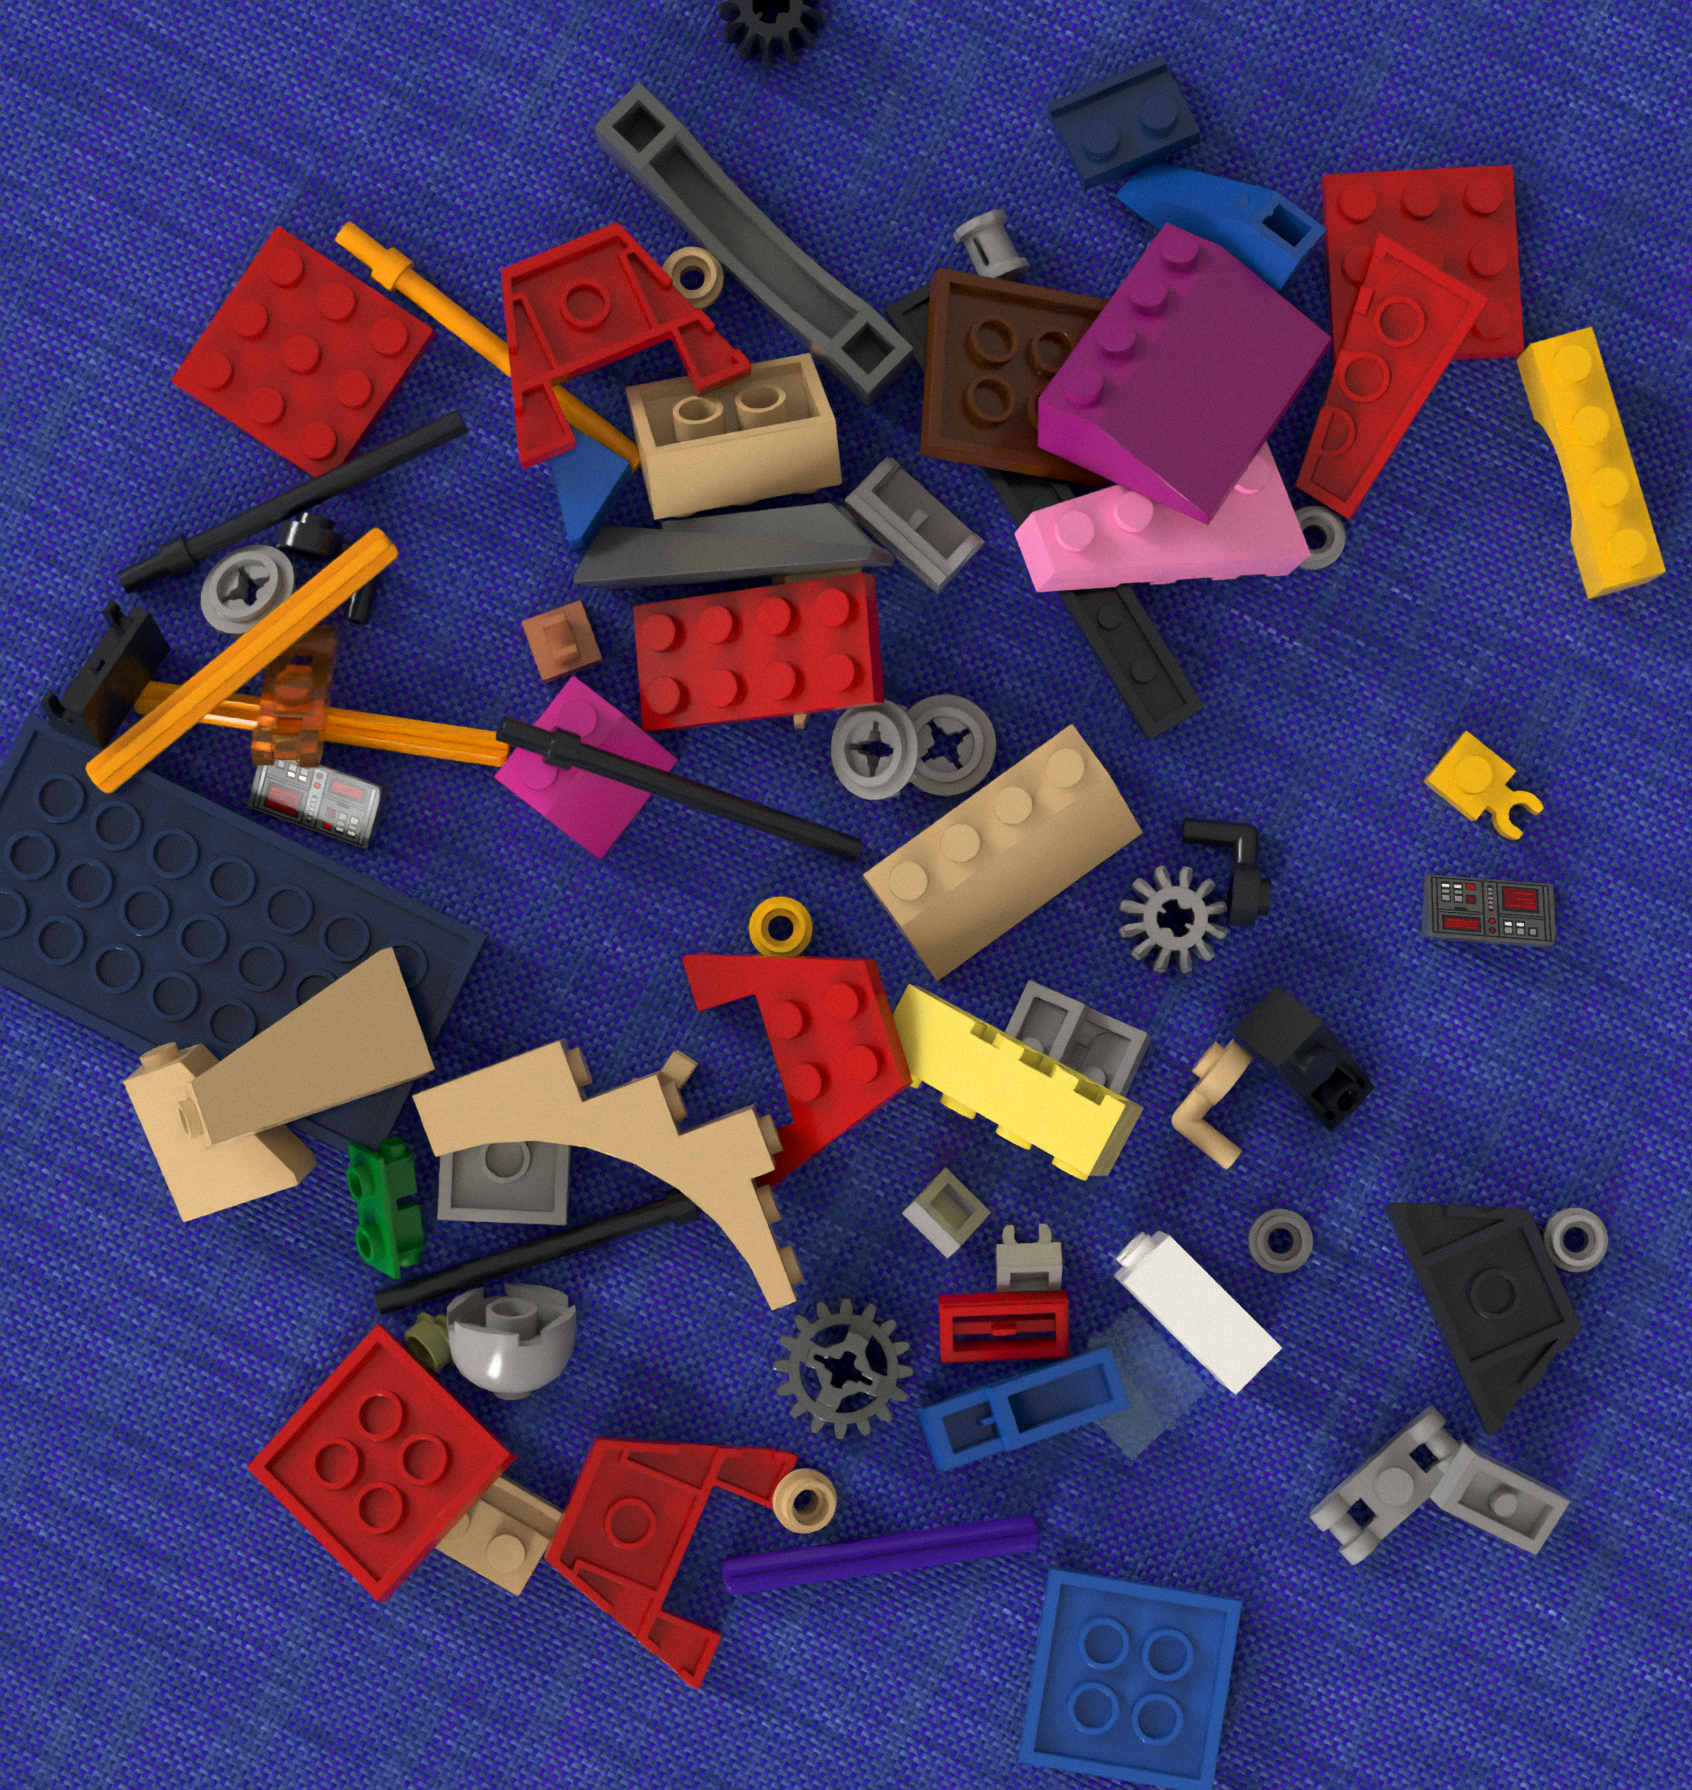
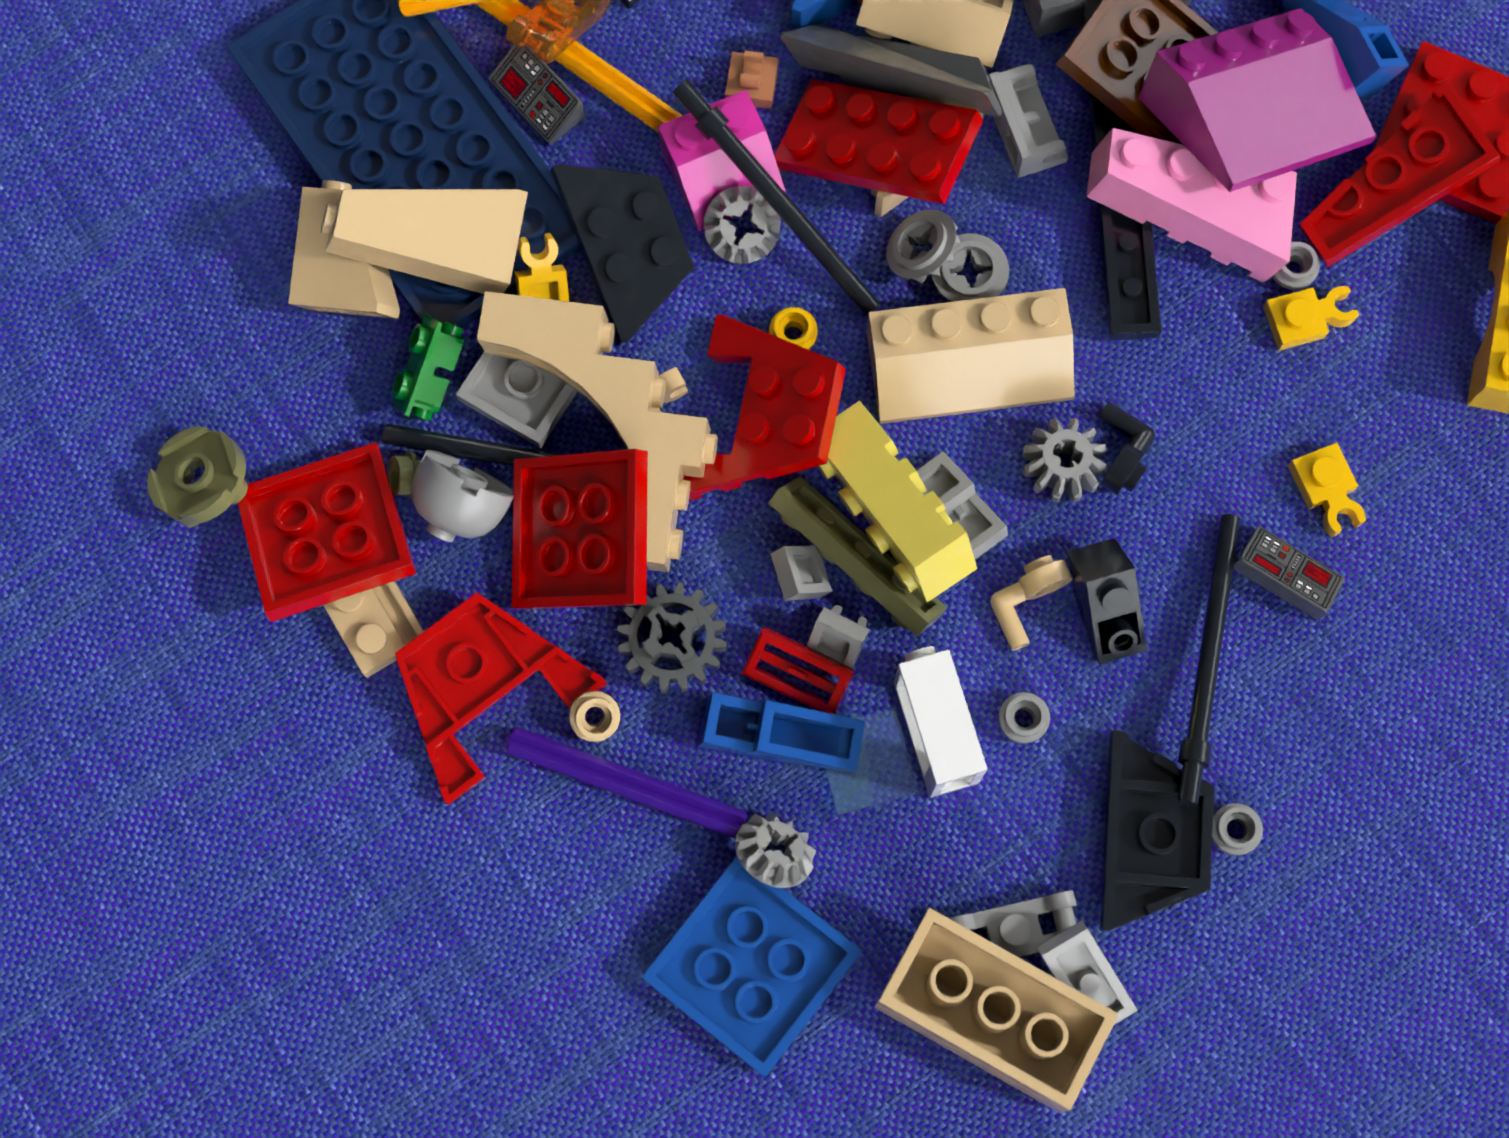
camera: 30 degrees right, 10 degrees down
(230, 1469) = (216, 489): none -> olive plate
(463, 1032) = (541, 278): none -> yellow plate
(531, 929) = (625, 239): none -> black wing
(634, 857) = (721, 234): none -> light grey gear
(676, 1310) = (580, 530): none -> red plate
(980, 1156) = (854, 553): none -> olive plate
(1103, 1564) = (773, 866): none -> light grey gear
(1353, 595) = (1304, 318): none -> yellow plate
(1422, 1592) = (997, 1011): none -> tan slope
(1489, 1183) = (1195, 750): none -> black bar

